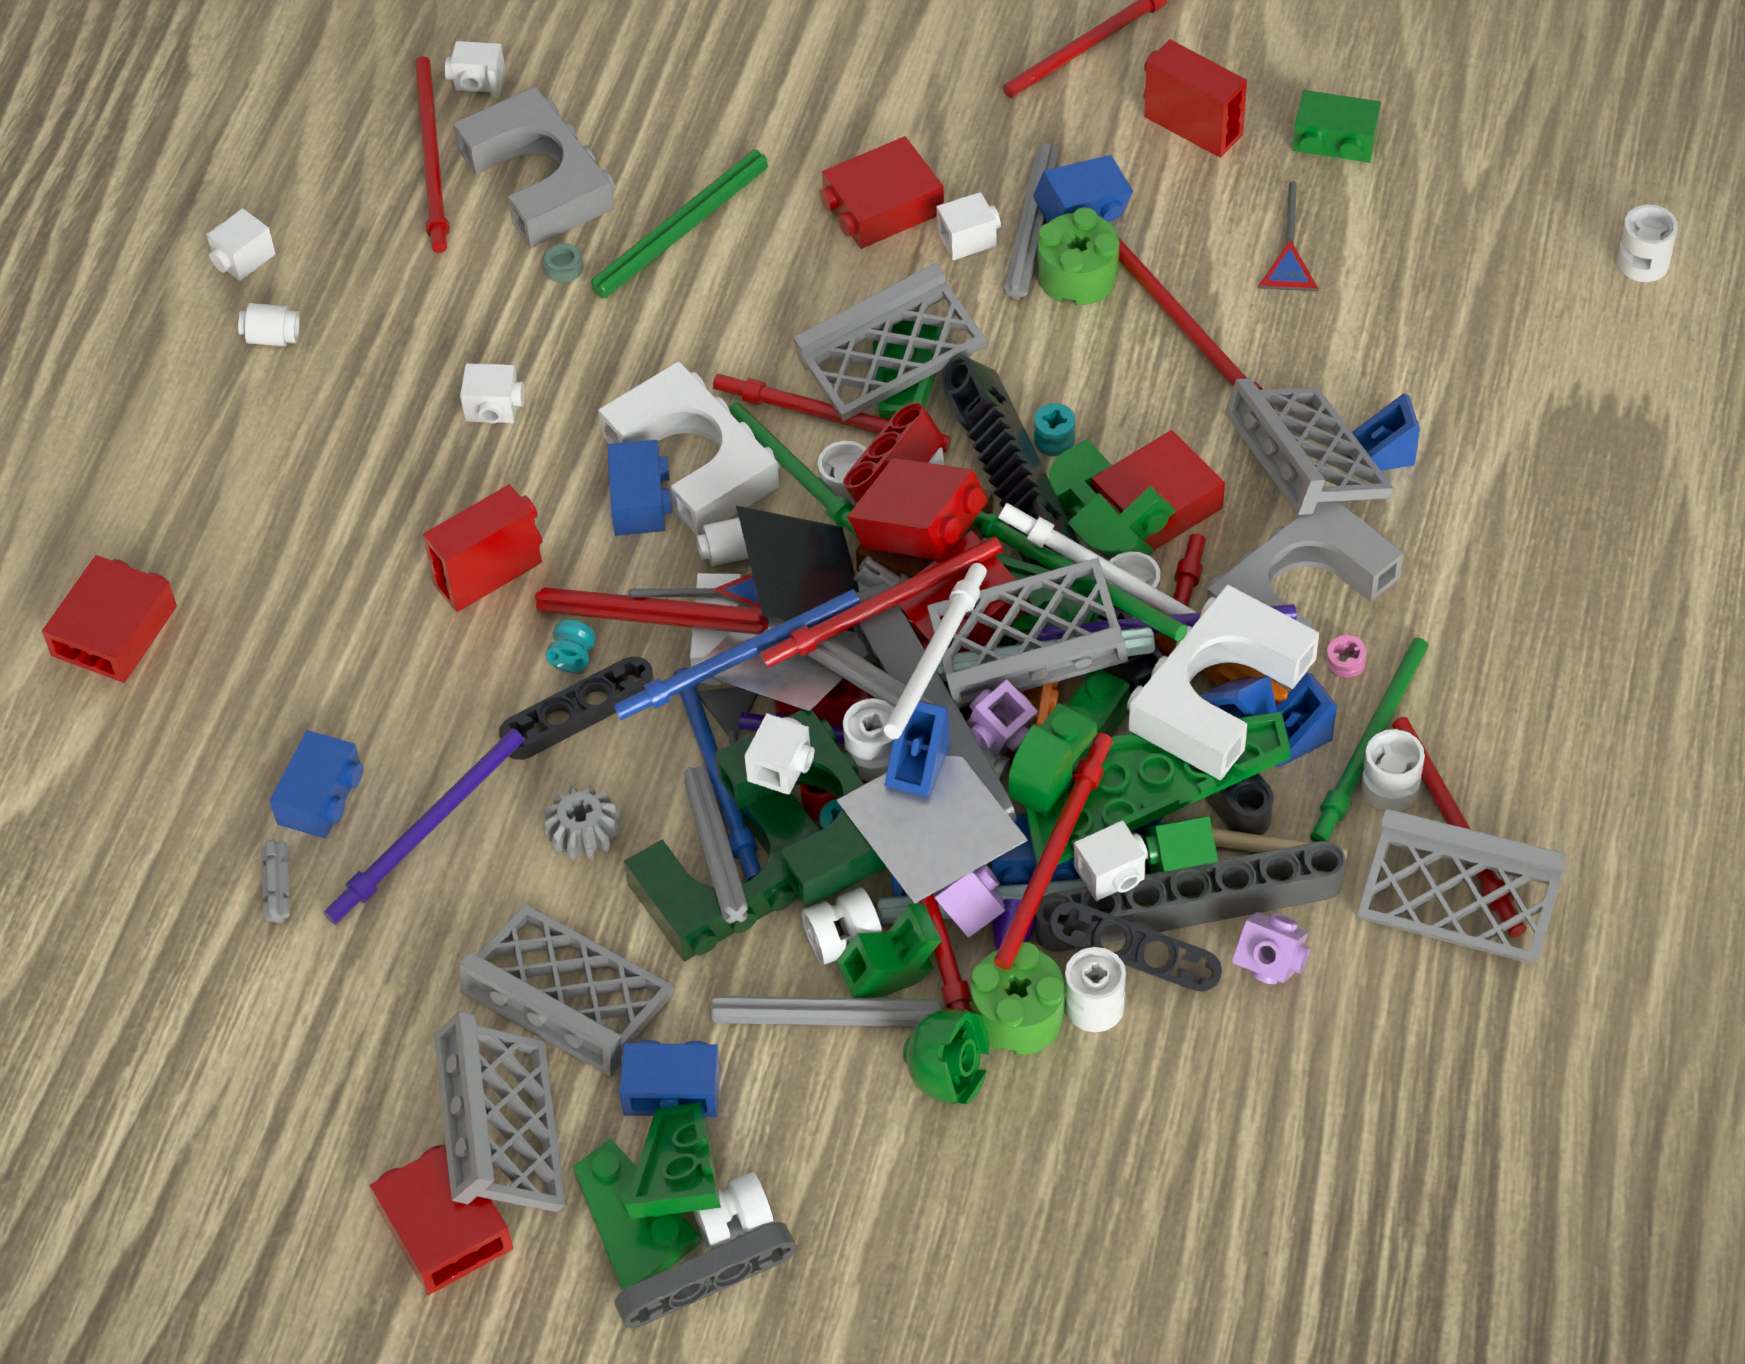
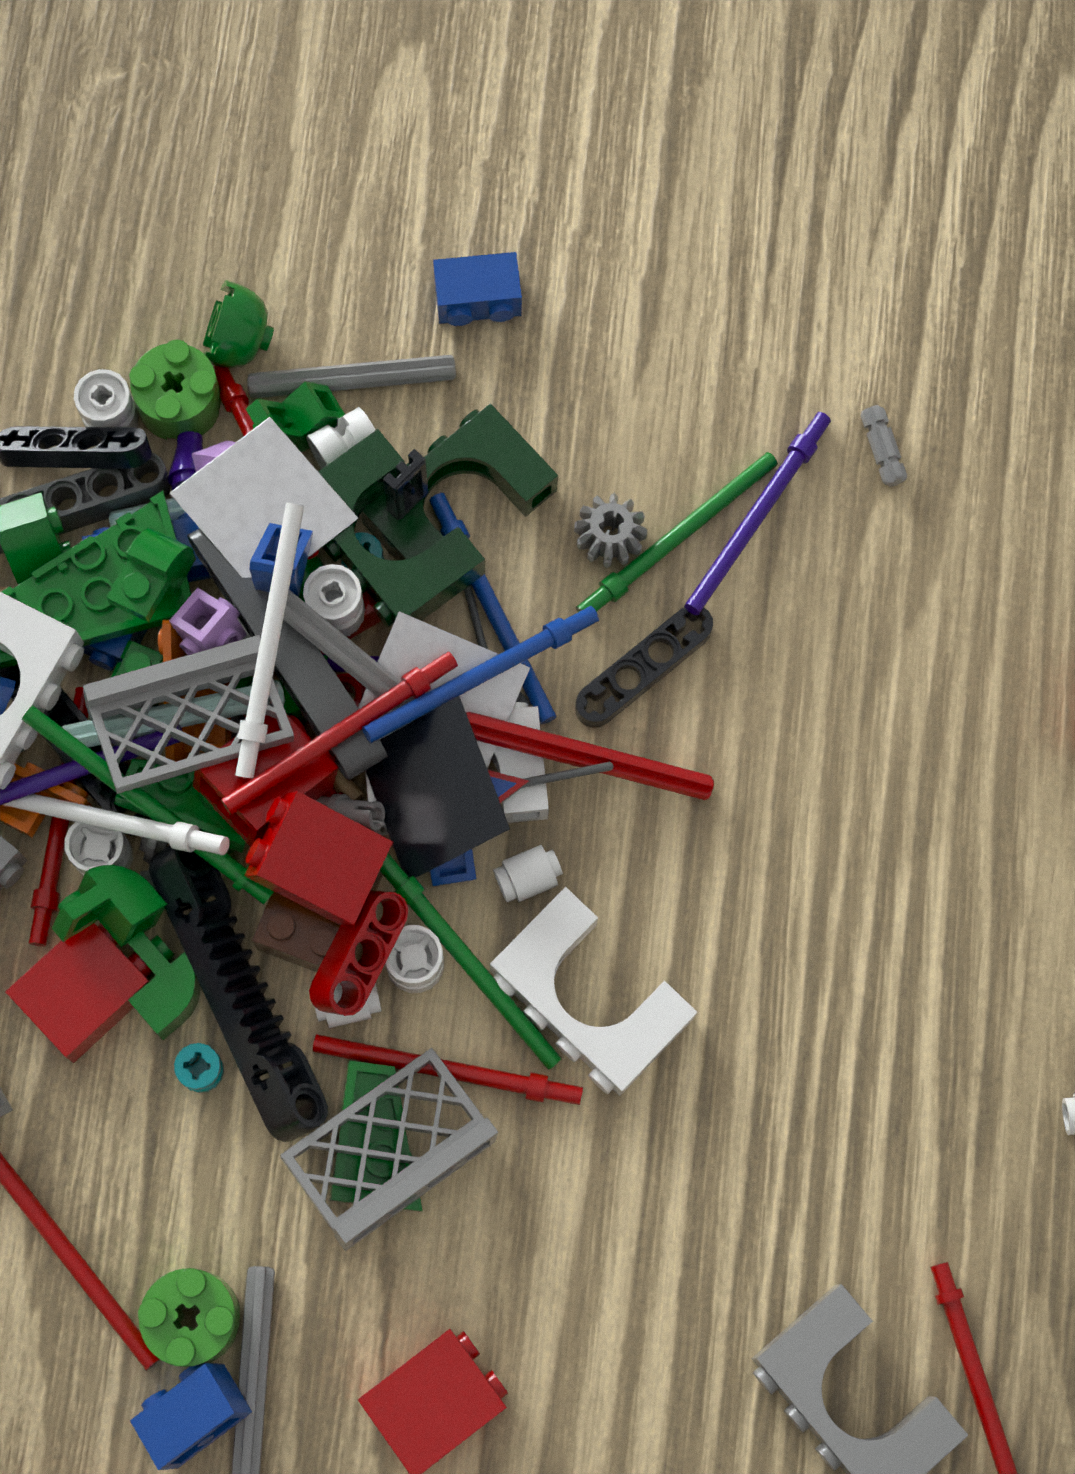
camera: 165 degrees right, 20 degrees up
(316, 784) = (873, 542): blue brick -> none
(435, 1233) = (649, 148): red brick -> none
(467, 1110) = (641, 202): light grey fence -> none
(483, 547) = (777, 814): red brick -> none
(491, 393) = (822, 1040): white brick -> none
(544, 1009) = (603, 337): light grey fence -> none
(563, 263) = (790, 1258): sand green tile -> none
(571, 646) = (664, 726): teal wheel -> none
(587, 775) = (616, 584): none -> green bar
(633, 1246) = (489, 176): green wing -> none
(636, 487) = (636, 932): blue brick -> none
(674, 1166) = (454, 191): green wing -> none
(678, 224) = (665, 1336): green axle -> none
(705, 1275) = (415, 126): dark grey beam -> none
(715, 845) = (476, 506): light grey axle -> none
(741, 1212) = (404, 171): white wheel -> none
(779, 753) = (416, 543): white brick -> none
(789, 822) = (399, 493): none -> black tile
(967, 225) = (325, 1362): white brick -> none
(1085, 778) = (149, 489): red bar -> none
(1110, 860) = (92, 504): white brick -> none

